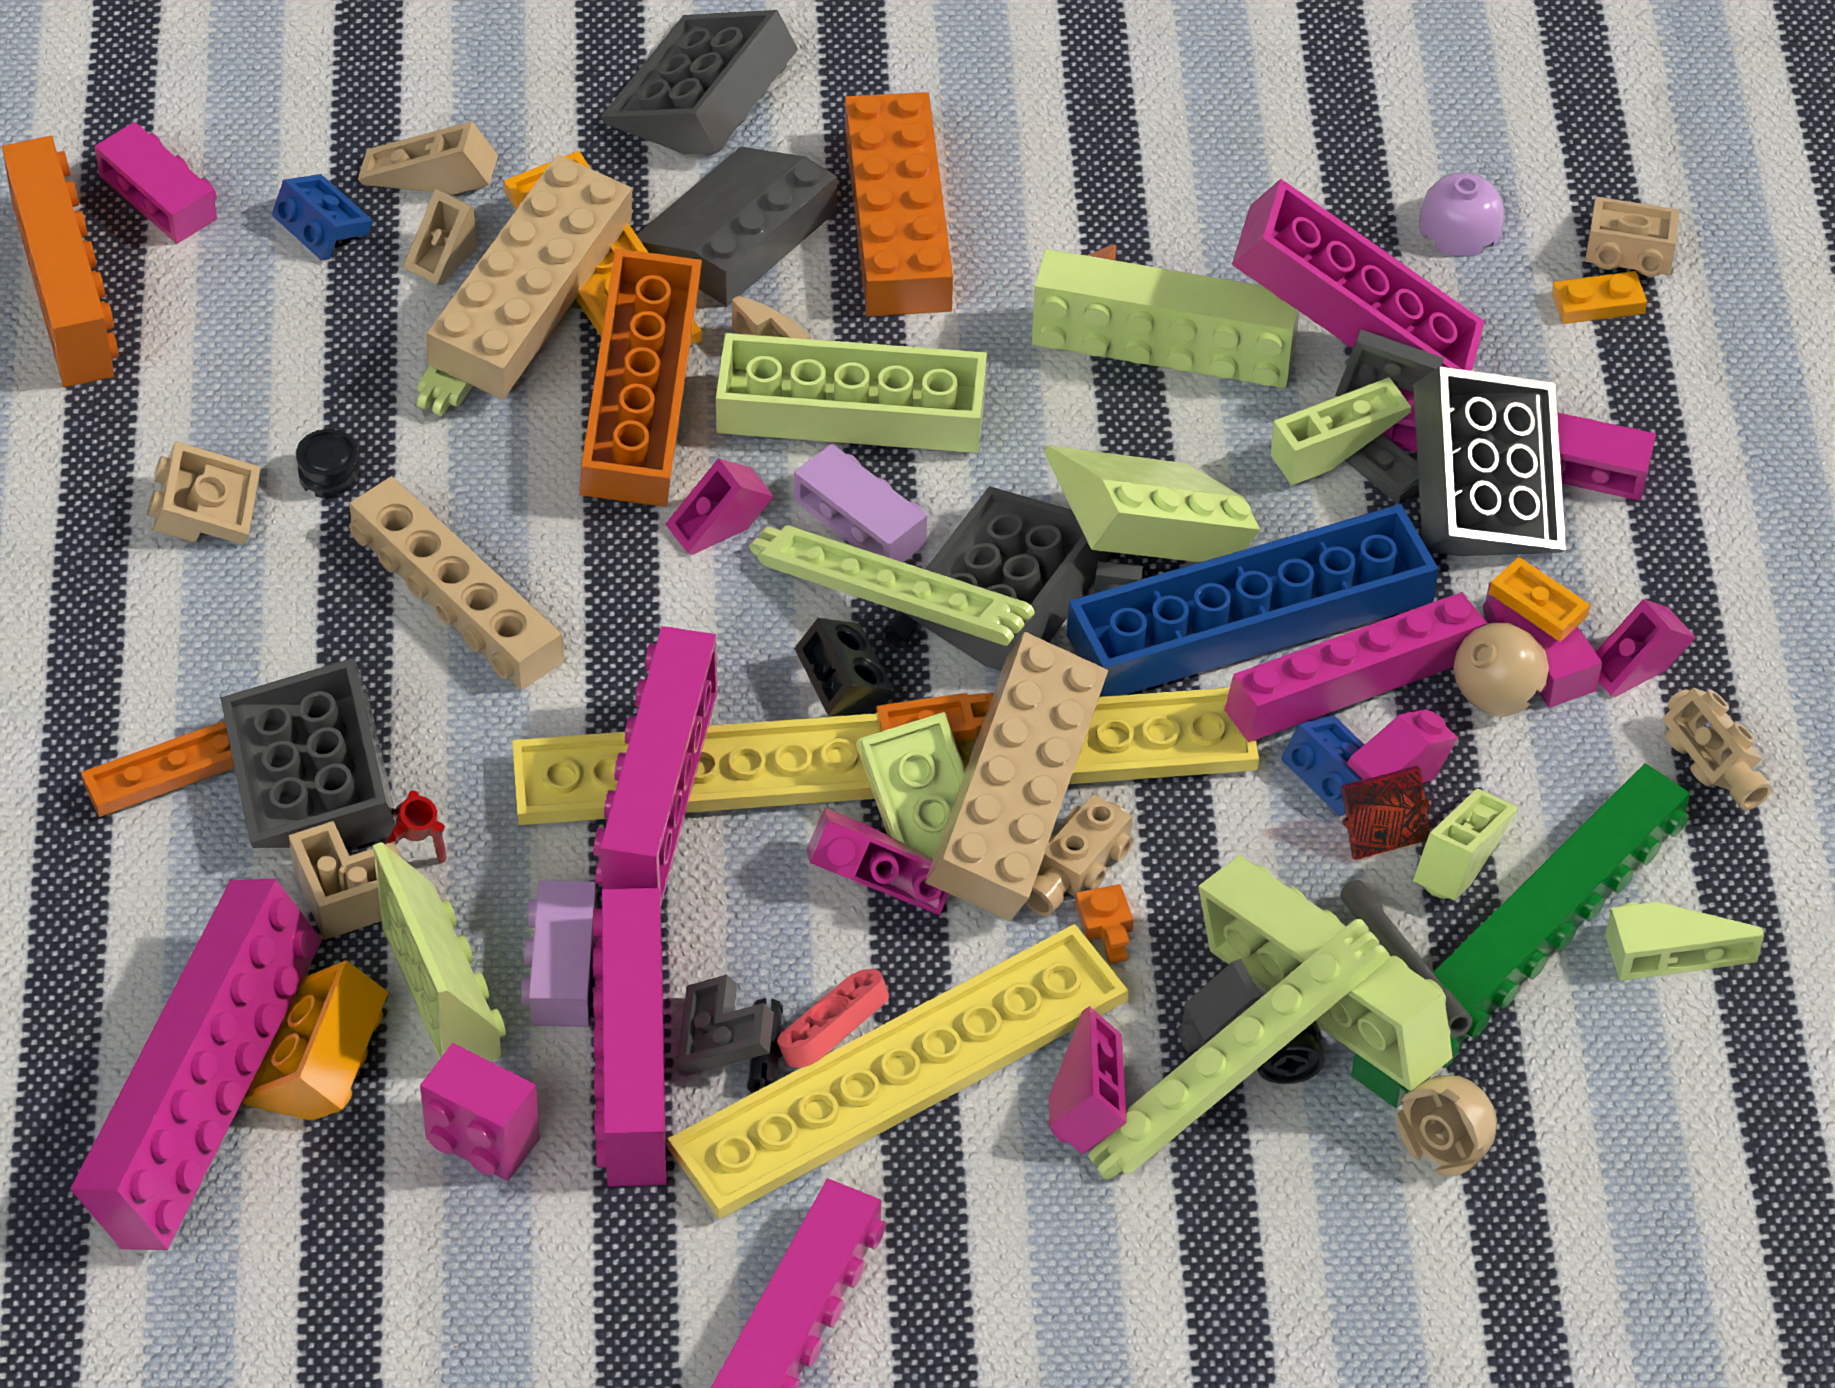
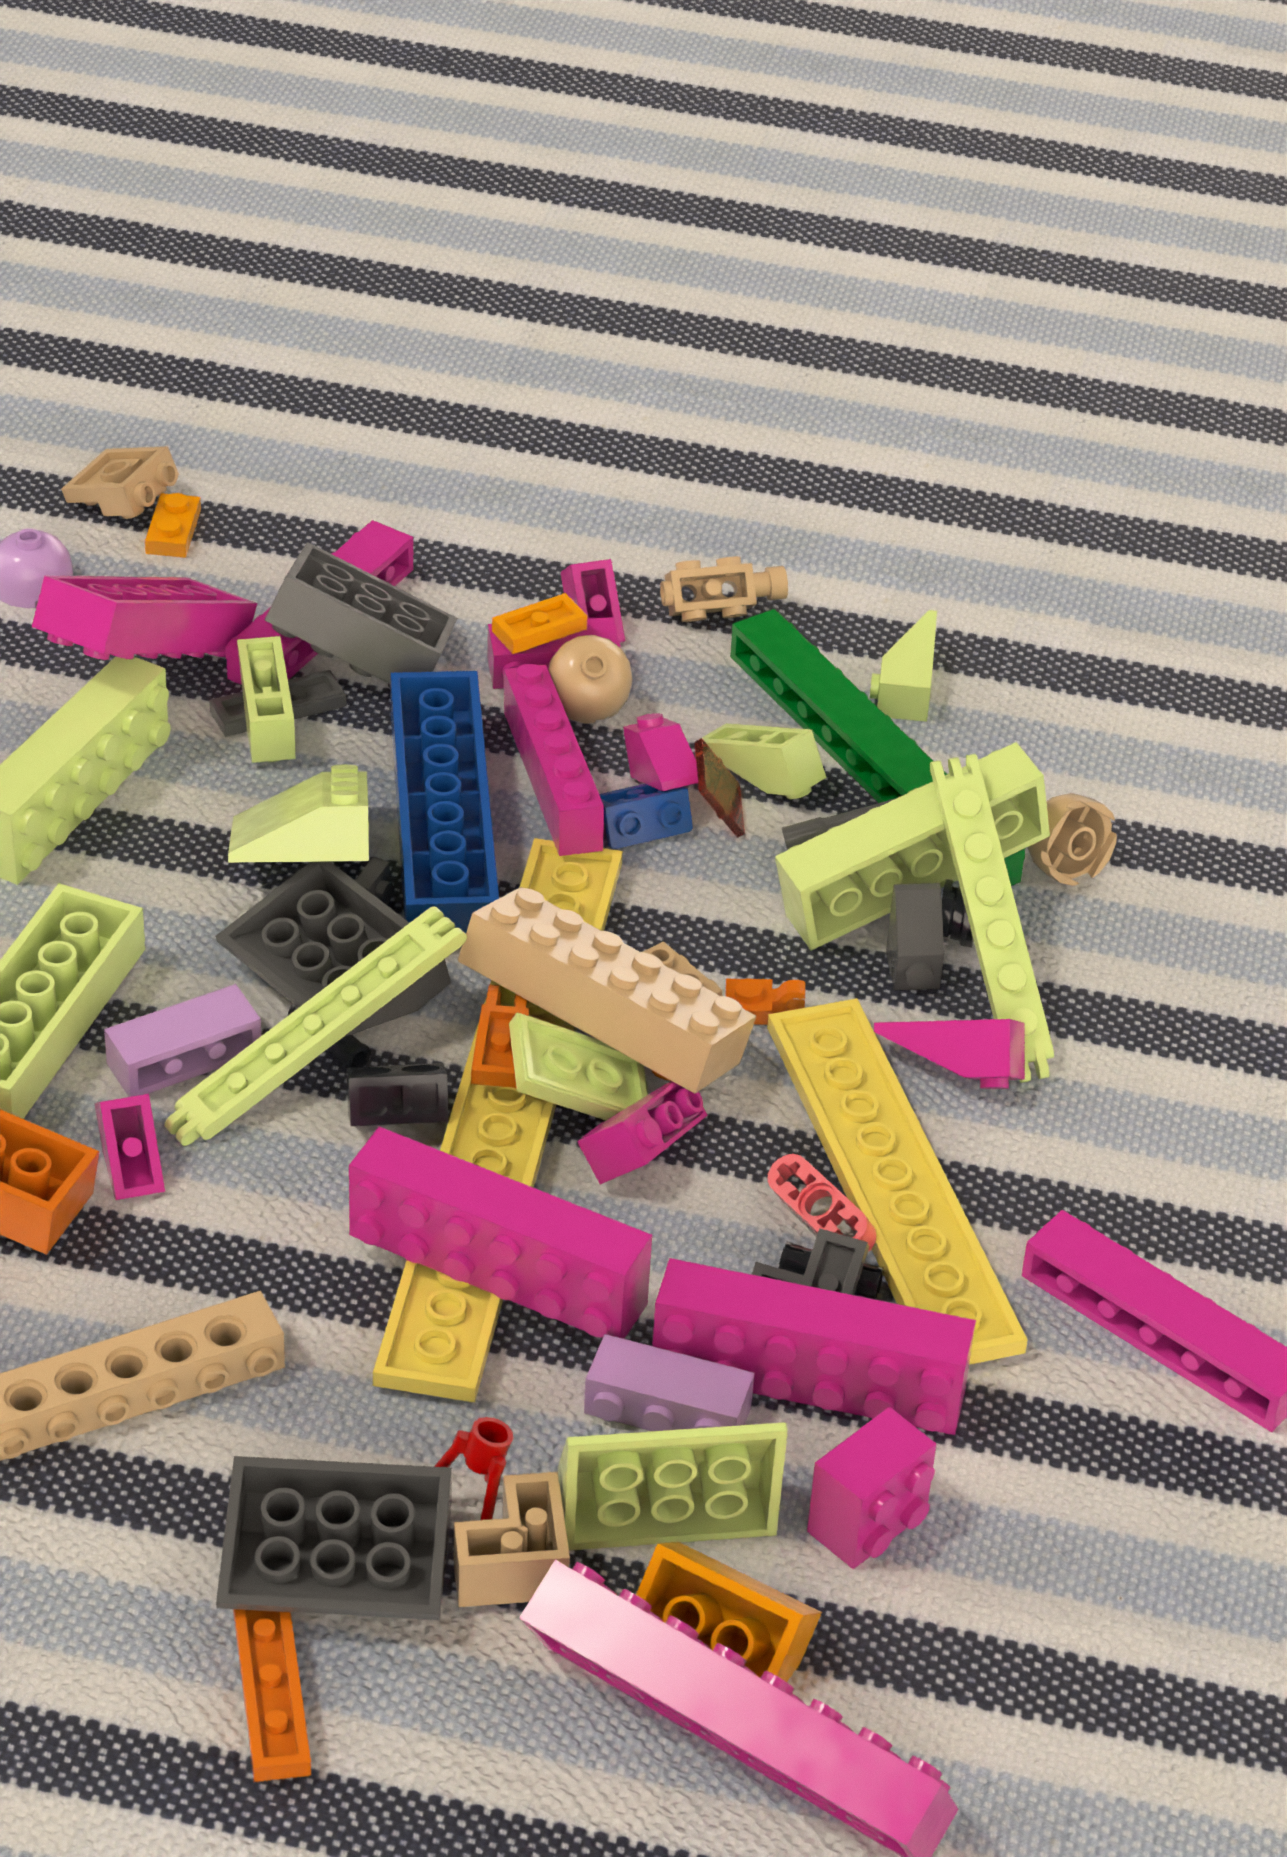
camera: 75 degrees left, 10 degrees down
(1379, 358) = (217, 643): dark grey plate -> none

